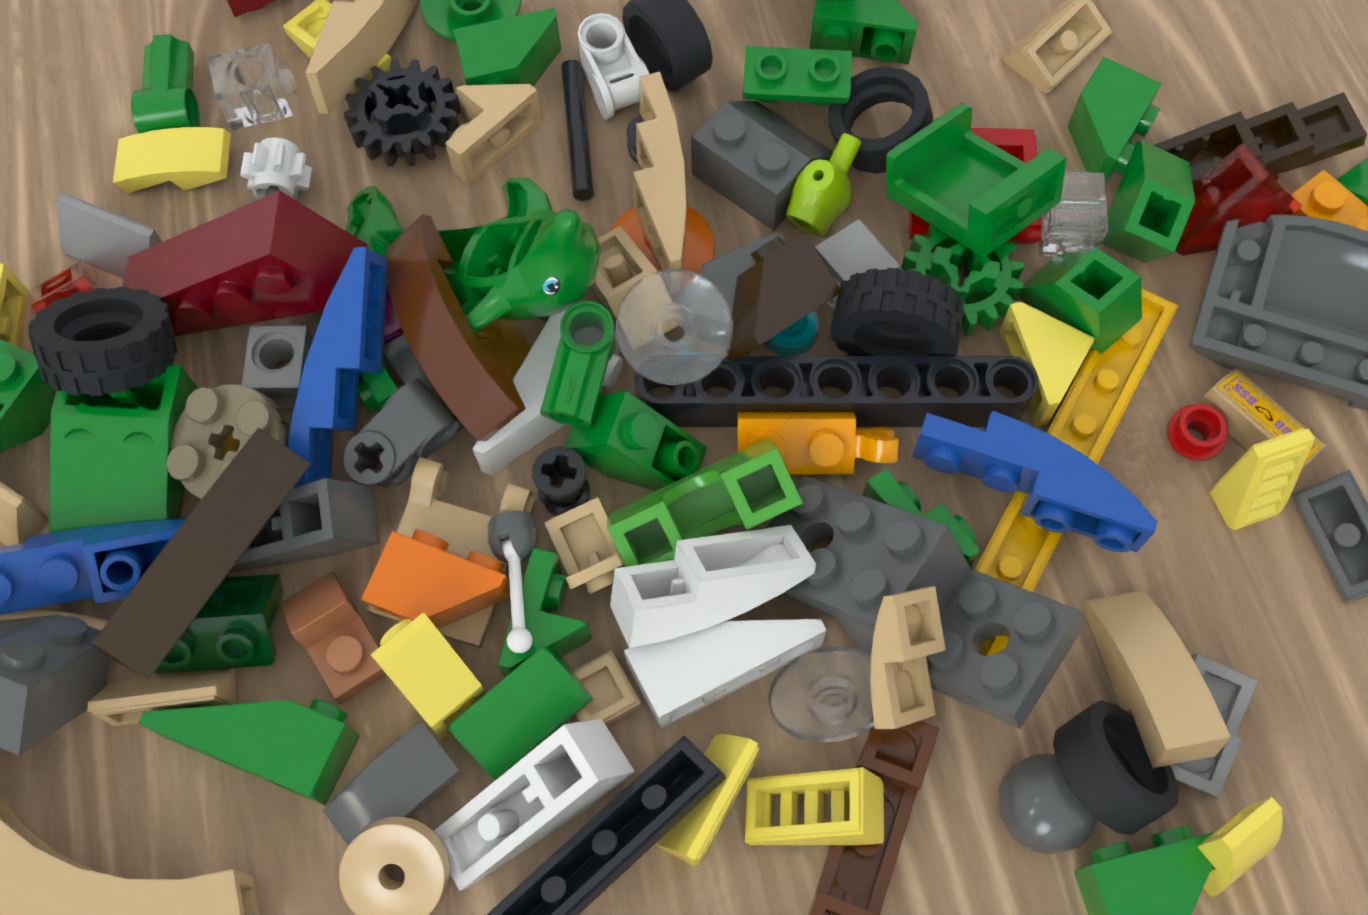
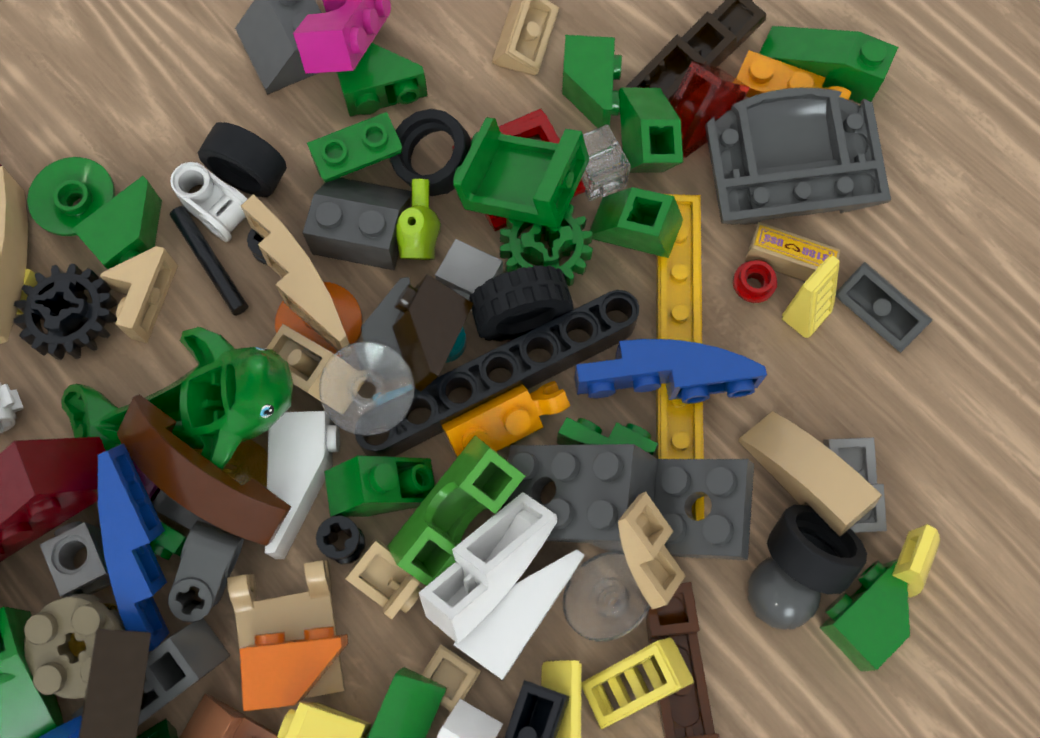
camera: 30 degrees left, 5 degrees up
(512, 539) = (329, 606): hinge -> none
(545, 591) = (378, 661): green slope -> none
(579, 368) = (314, 458): green piece -> none
(1050, 348) = (634, 272): light yellow slope -> none

